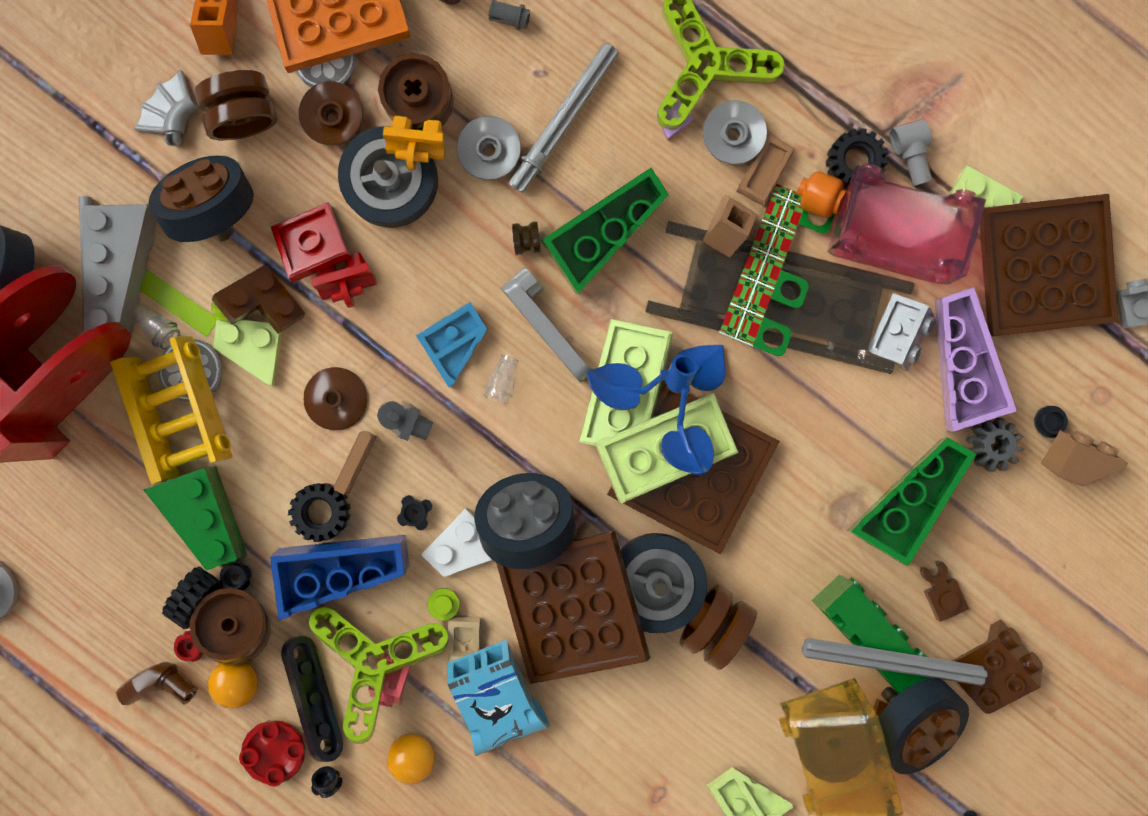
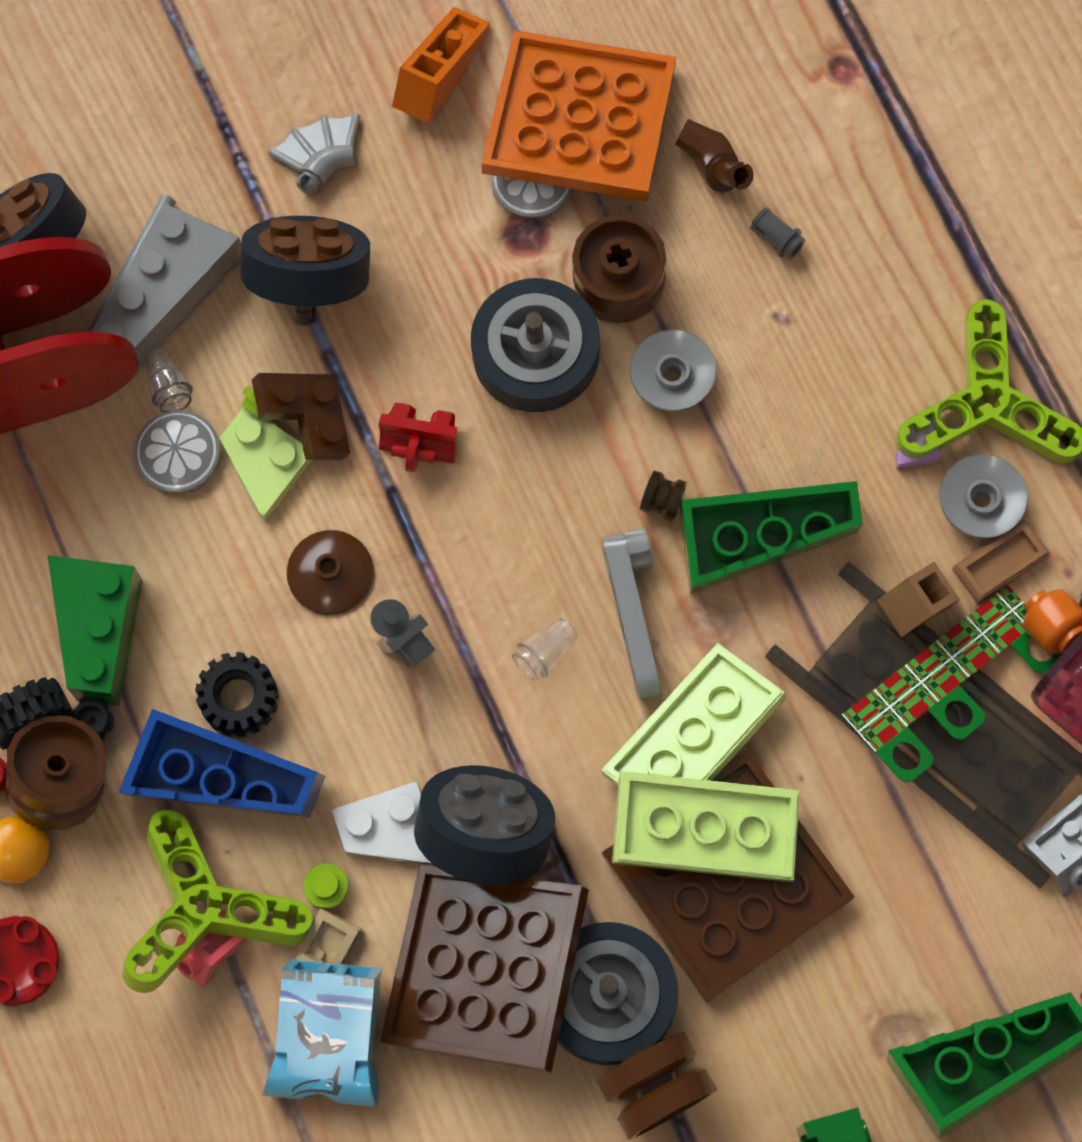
camera: 30 degrees right, 15 degrees down
(145, 418) = (101, 460): yellow fence -> none
(177, 303) = (205, 370): lime sticker -> none
(235, 105) = (402, 179): reddish brown wheel -> none
(310, 242) = (402, 374): plate -> none
(312, 699) = (100, 918): black plate -> none
(320, 102) = (506, 224): reddish brown dish -> none
(326, 782) = (58, 1032): black plate -> none
(354, 462) = (313, 655): medium nougat tile -> none
(410, 504) = (351, 743): black plate -> none
(410, 759) = (178, 1061): light orange hair -> none
(414, 144) = (587, 318): light orange hips -> none
(453, 340) = (510, 573): dark azure wing -> none
(561, 121) = (780, 381): light grey axle -> none
(700, 366) = (800, 758): blue plant -> none

